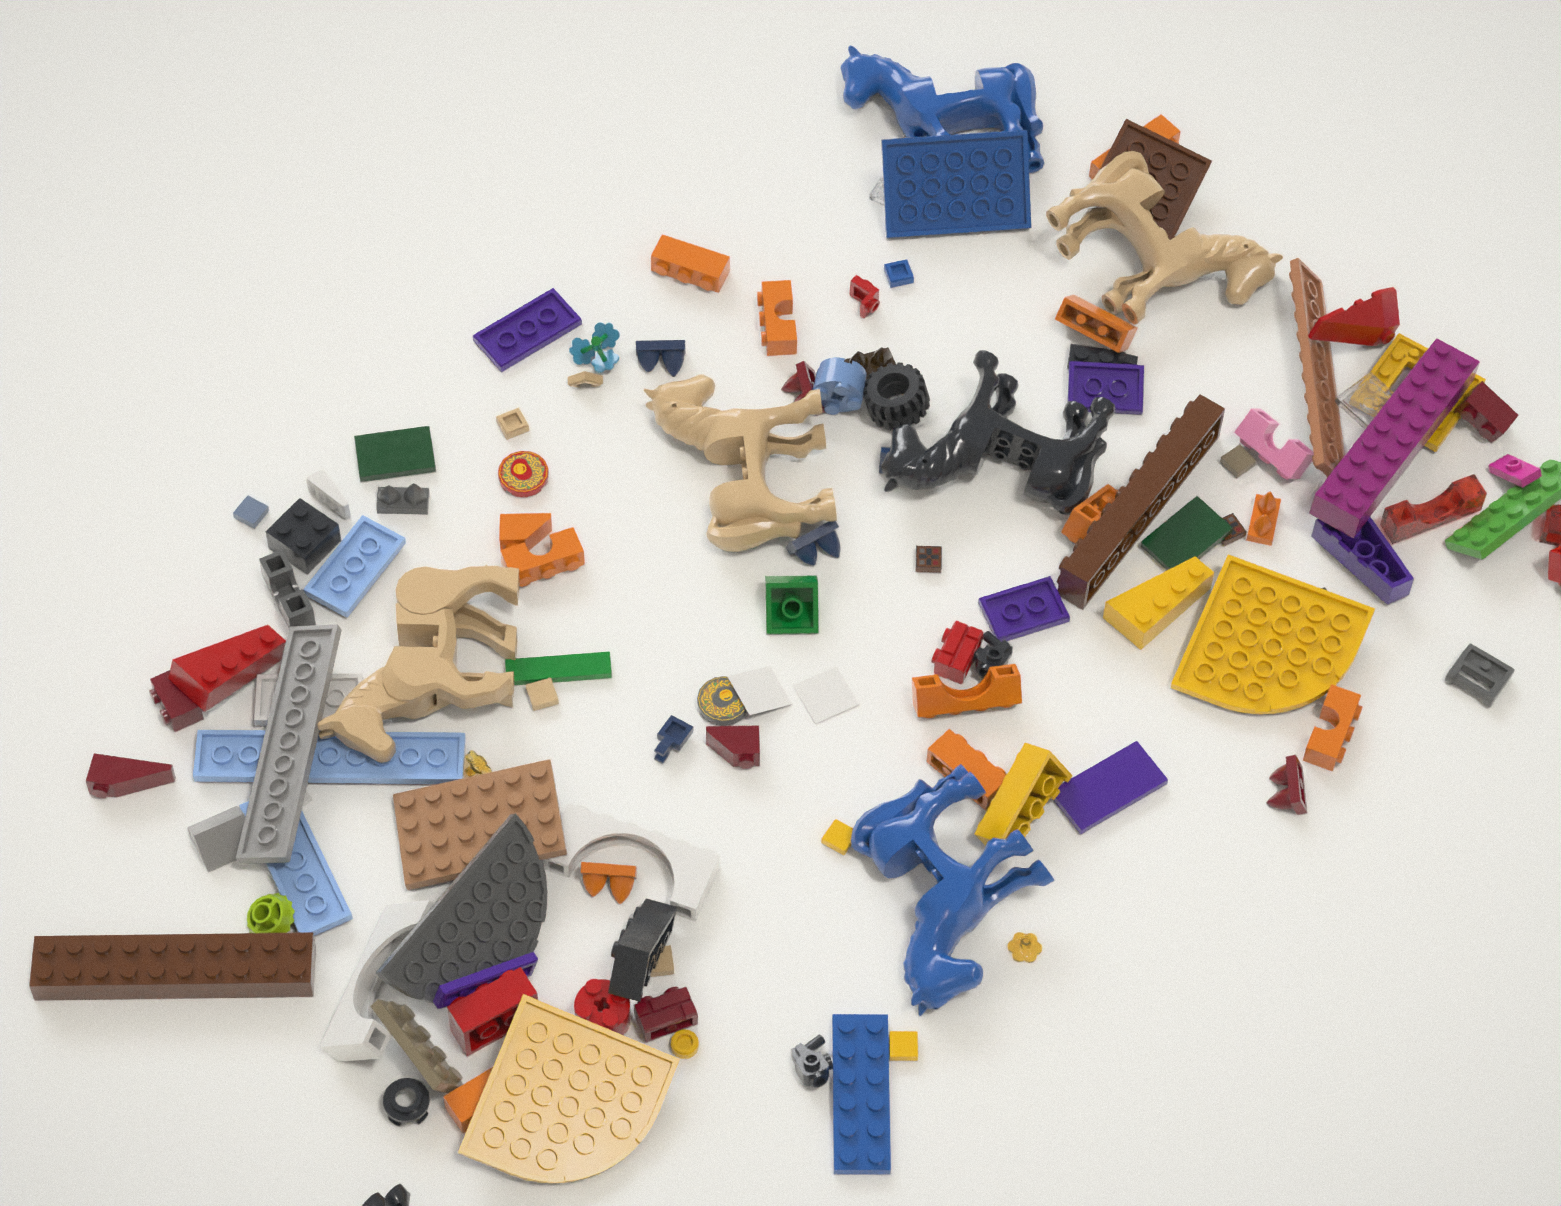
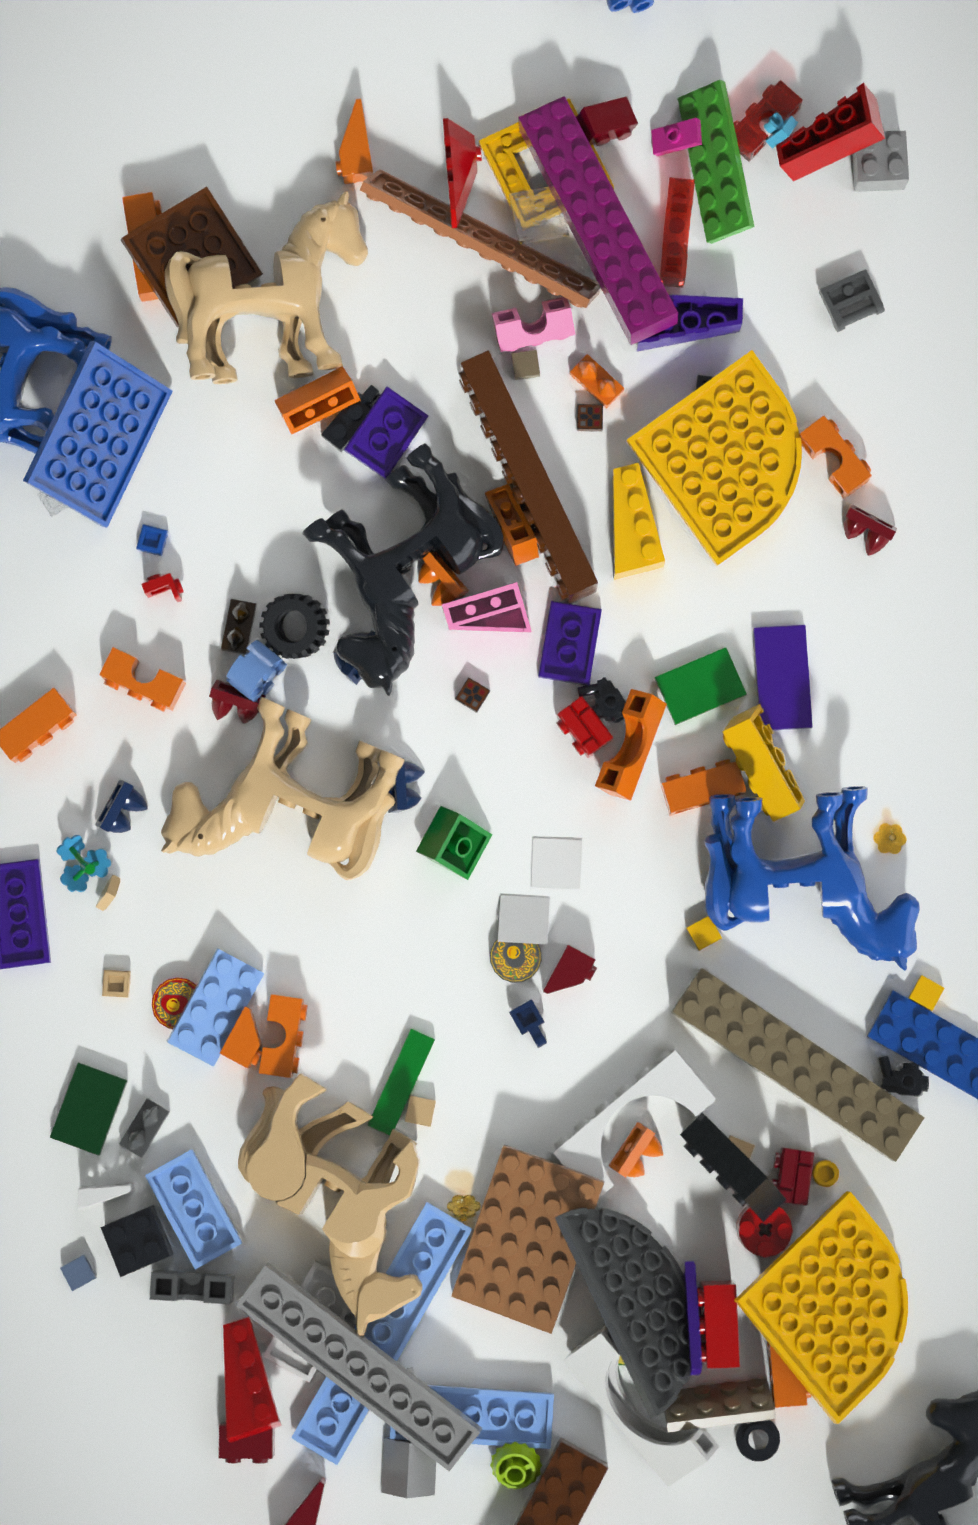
camera: 55 degrees left, 25 degrees up
(556, 493) = (215, 1007): none -> light blue plate
(768, 967) = (798, 1065): none -> dark tan brick
(1008, 529) = (489, 611): none -> bright pink wedge
(1011, 494) = (450, 585): none -> orange tile
(1056, 726) = (700, 686): none -> green tile
(1186, 534) = (579, 459): dark green tile -> none
(1329, 250) = (354, 152): none -> orange slope

